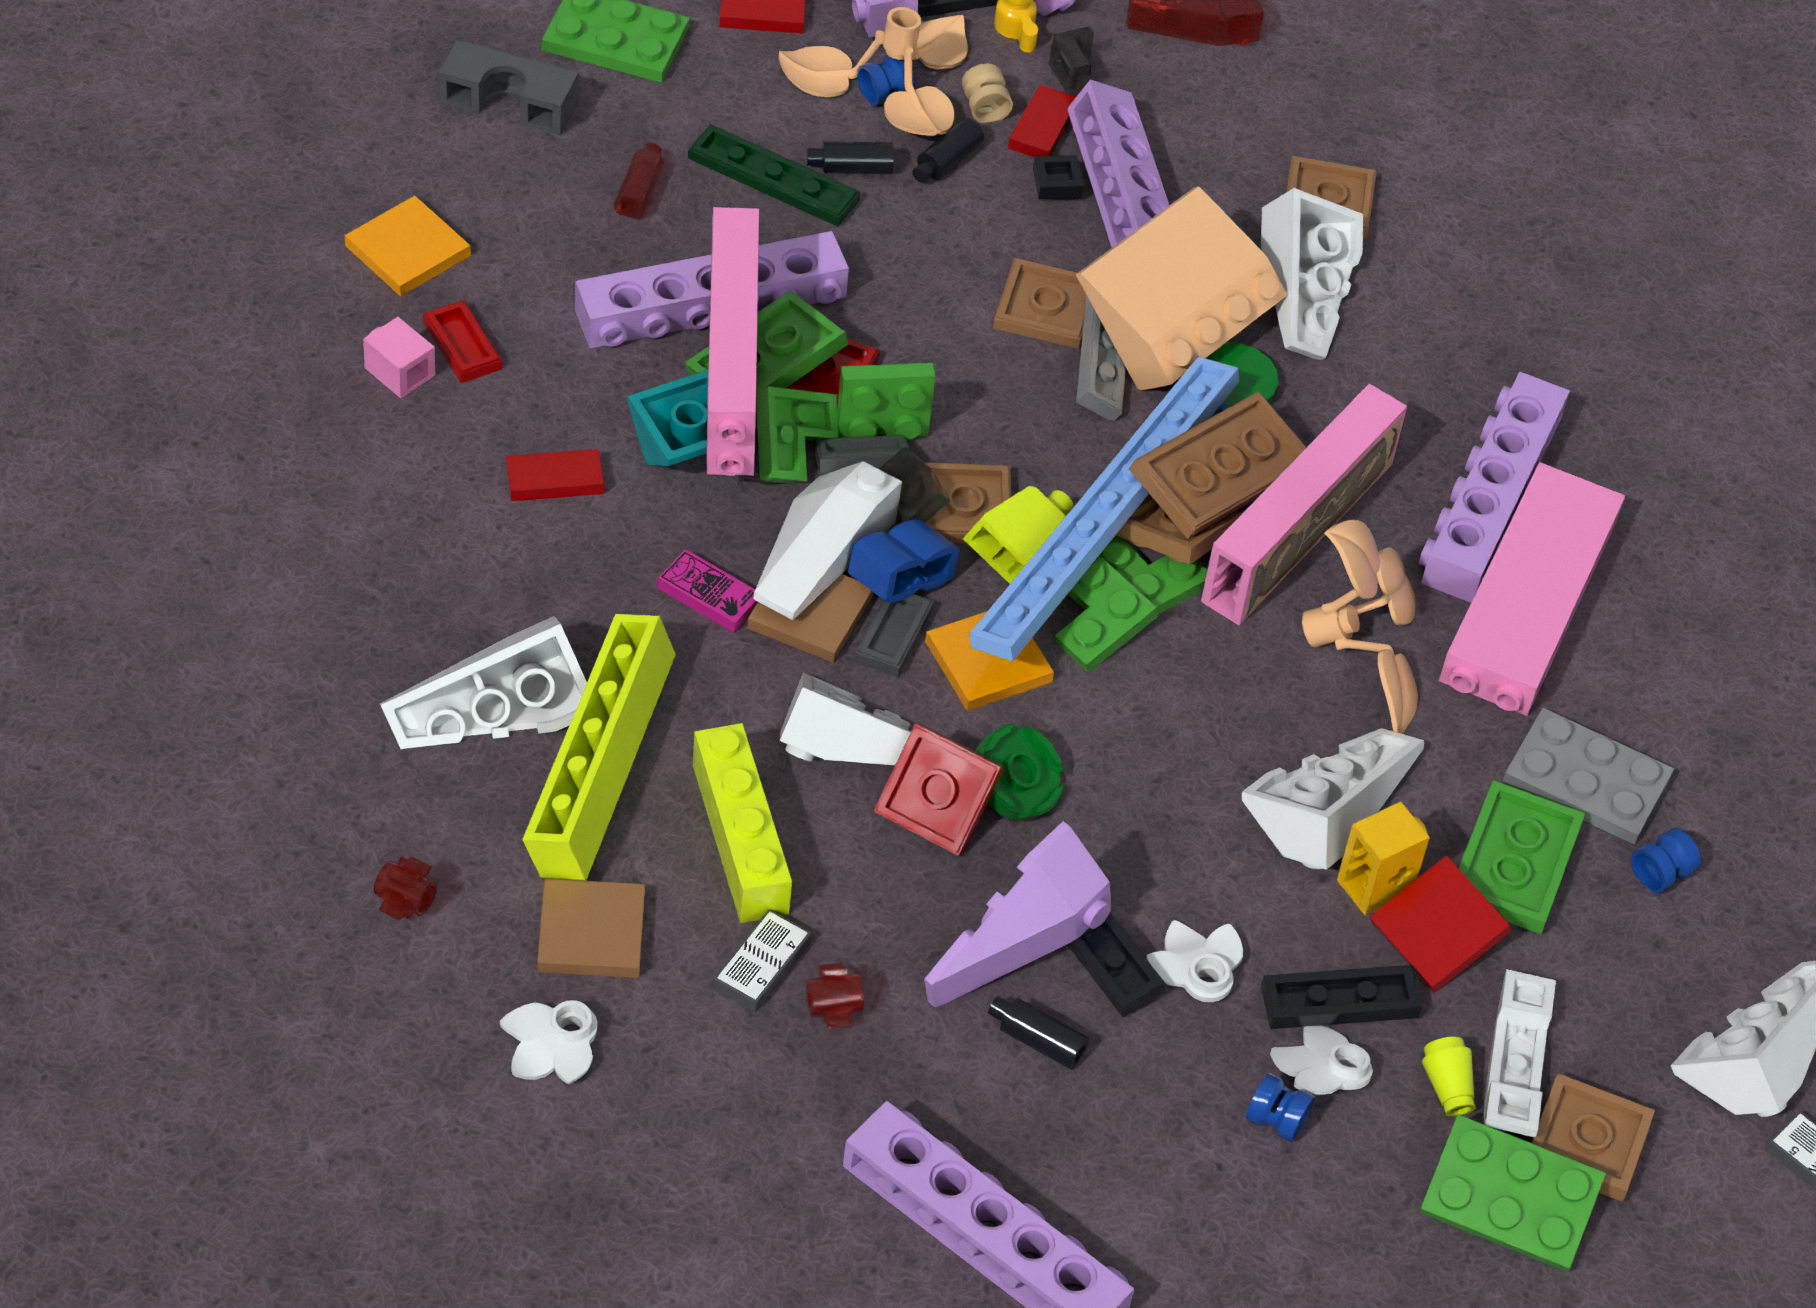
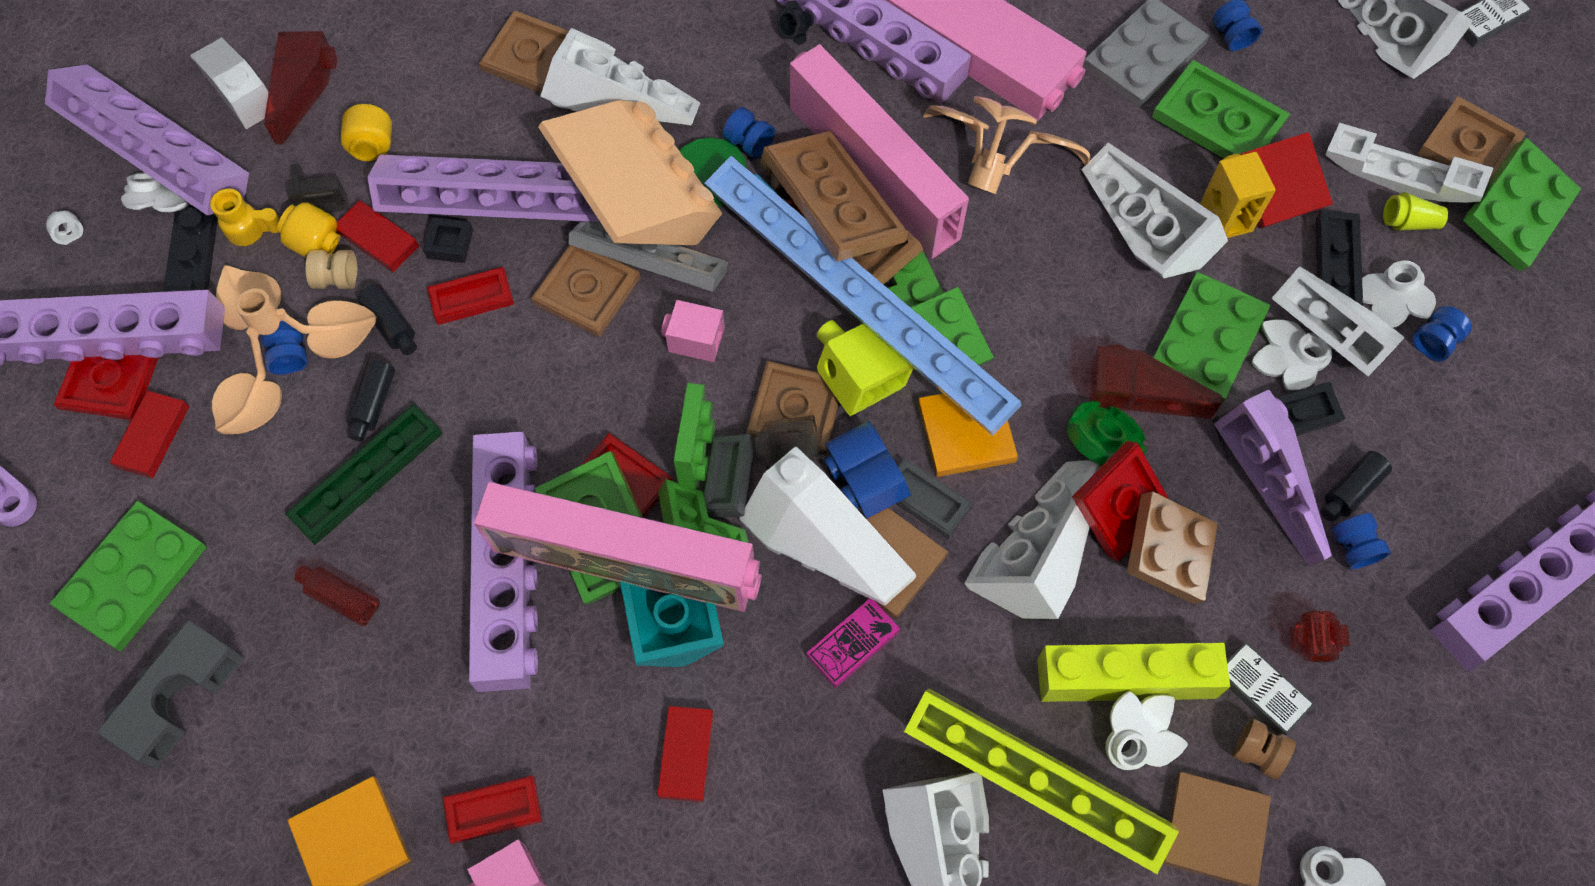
camera: 70 degrees left, 15 degrees up
(685, 846) = (1146, 727): none -> white plate
(691, 949) = (1264, 749): none -> medium nougat wheel
(899, 846) = (1172, 548): none -> medium nougat plate
(967, 1034) = (1361, 541): none -> blue wheel
(1001, 212) = (470, 295): none -> red tile
(1021, 395) = (693, 330): none -> bright pink brick
(1025, 63) = (308, 228): none -> yellow head
(1098, 793) = (1143, 384): none -> clear red slope
(1160, 80) = (366, 132): none -> yellow head
(1192, 875) = (1212, 333): none -> bright green plate
(1245, 987) = (1338, 320): none -> white slope
(1296, 397) = (748, 132): none -> blue wheel
(1468, 417) = (787, 22): none -> black plate

